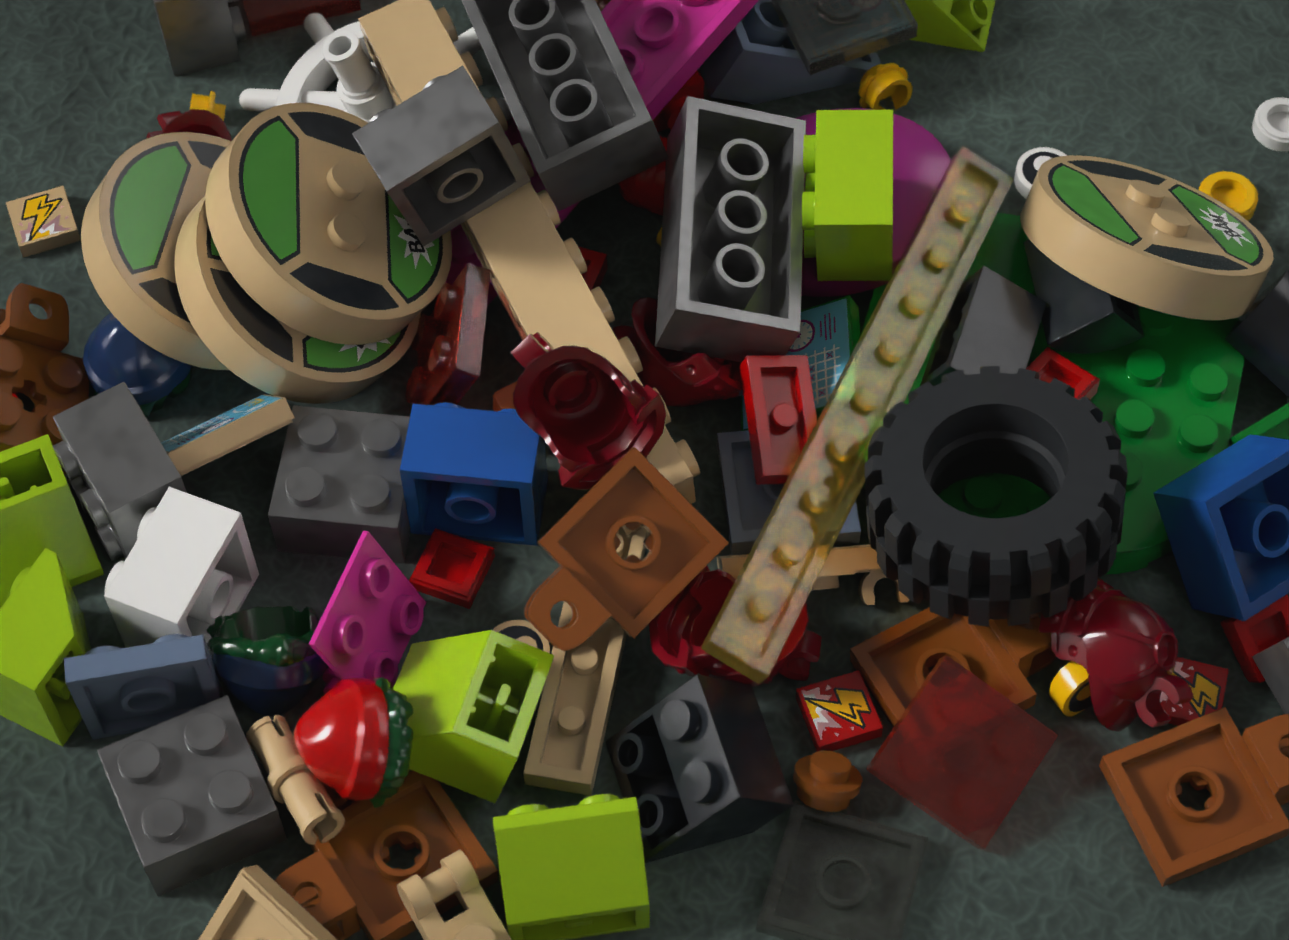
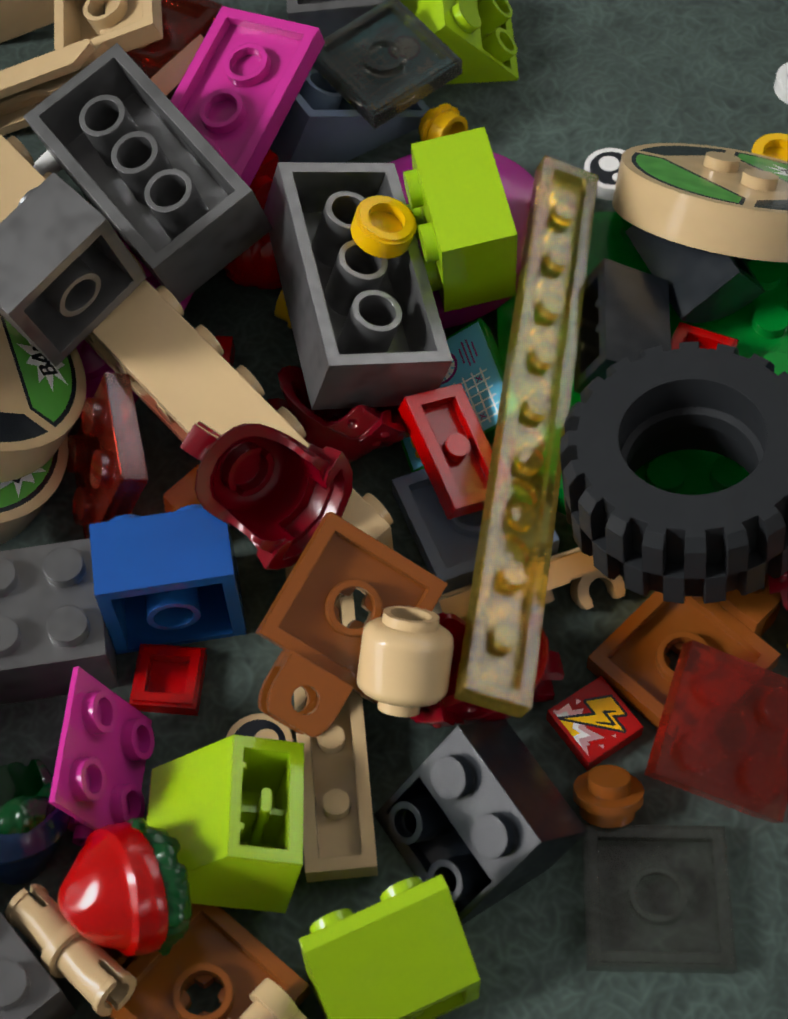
camera: 15 degrees left, 0 degrees up
(665, 602) = (405, 660): none -> tan head
(771, 184) = (383, 226): none -> yellow tile

